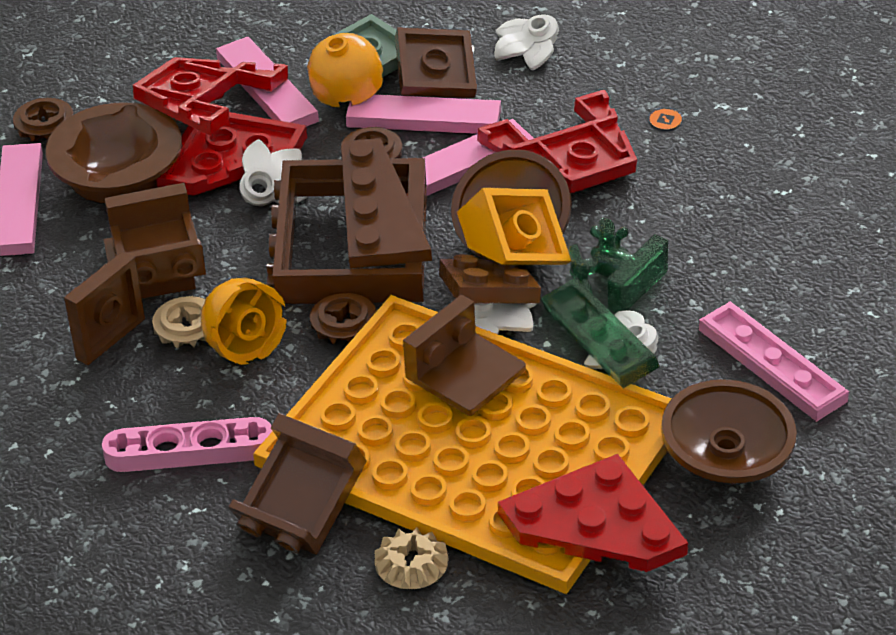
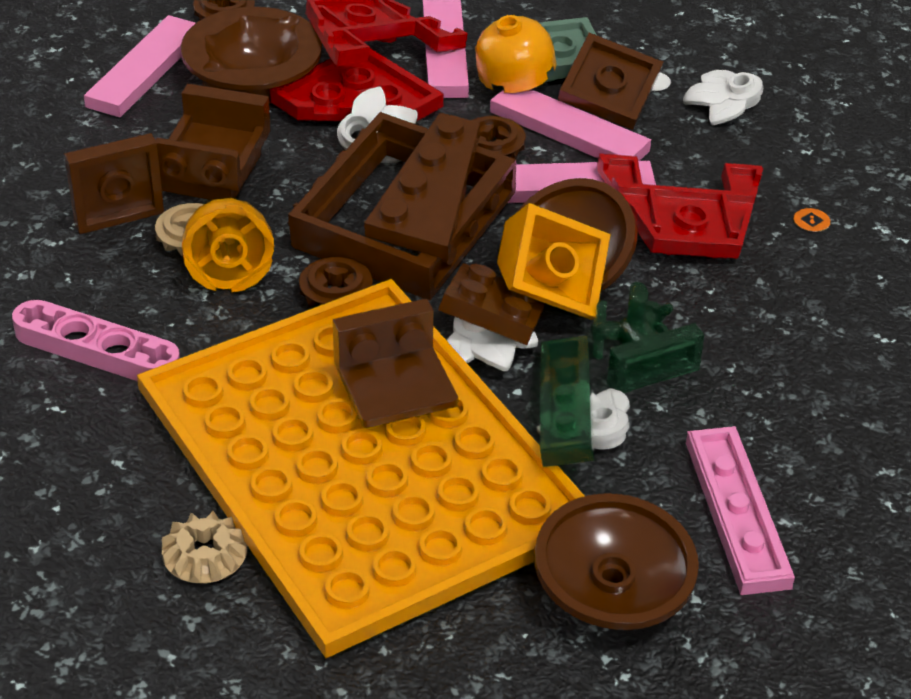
camera: 25 degrees right, 0 degrees up
(300, 486) = (144, 428): reddish brown panel -> none
(594, 516) = (406, 589): red plate -> none

